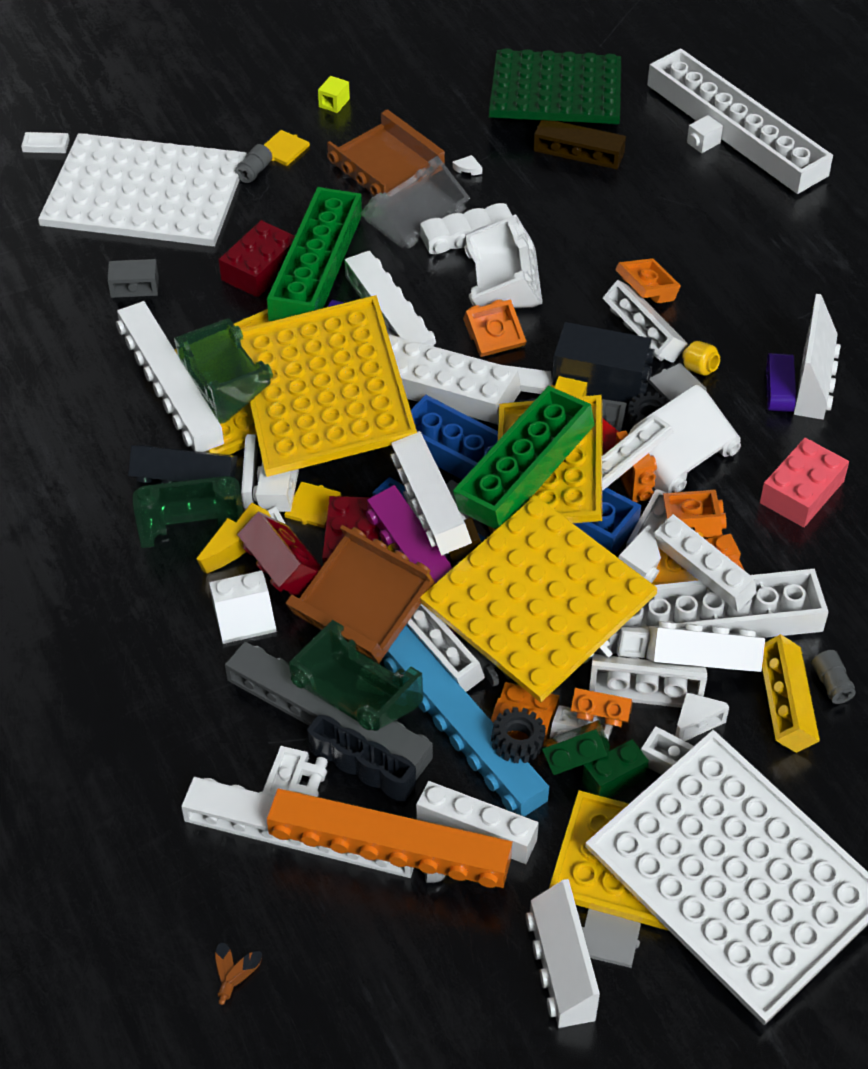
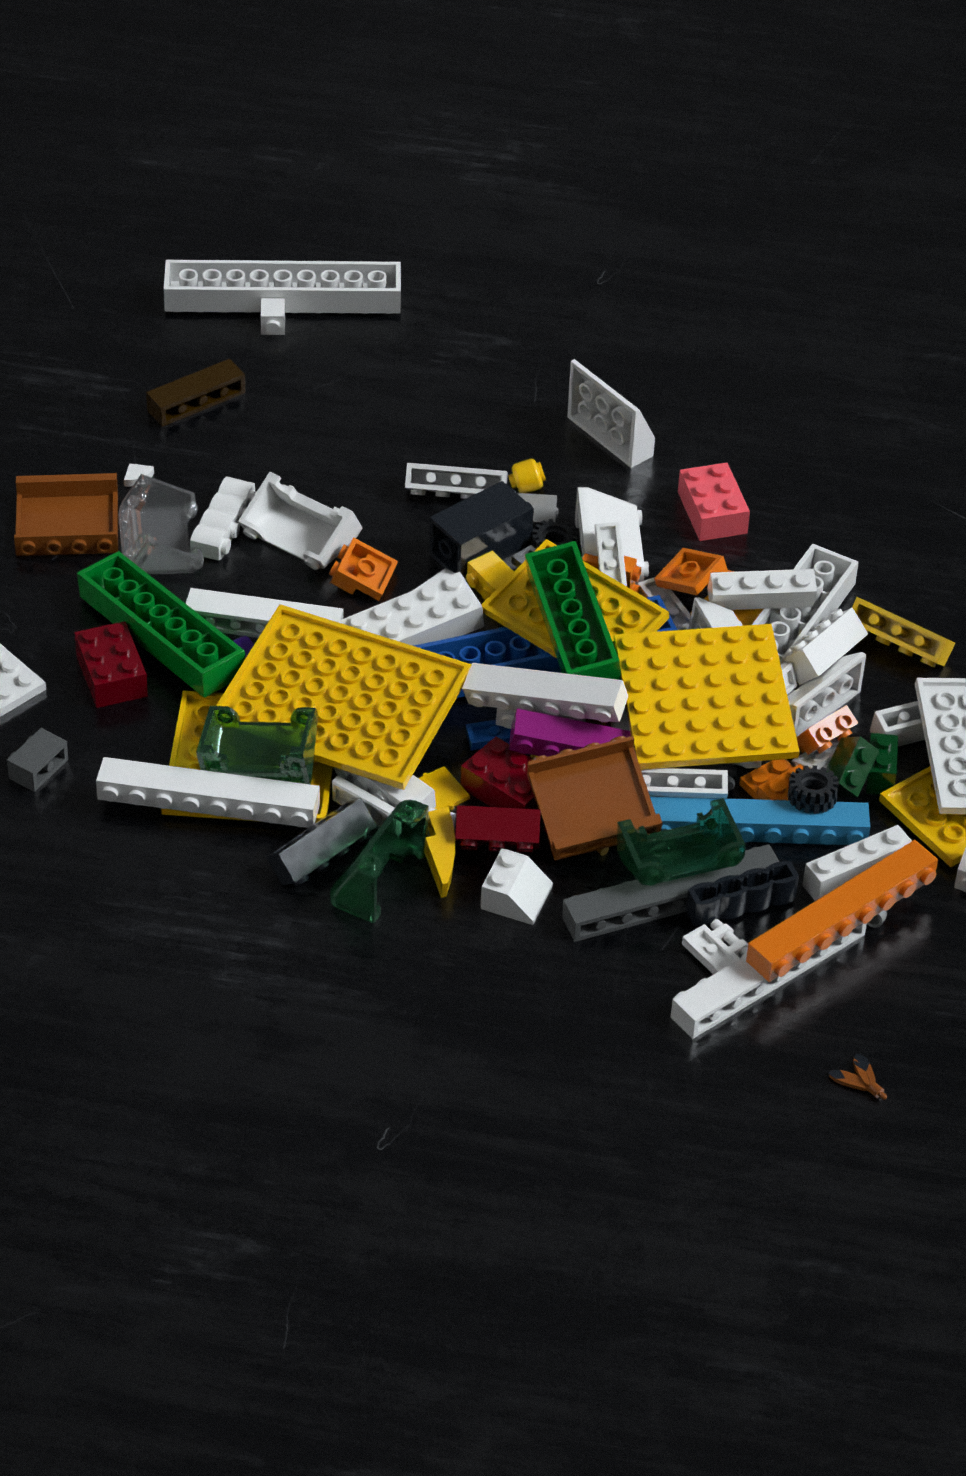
camera: 55 degrees left, 5 degrees down
(556, 86) = (108, 361): dark green plate -> none
(649, 279) = (414, 448): orange plate -> none
(700, 715) = (869, 691): white slope -> none
(780, 382) = (598, 451): dark purple beam -> none
(833, 676) = (904, 602): dark grey piece -> none

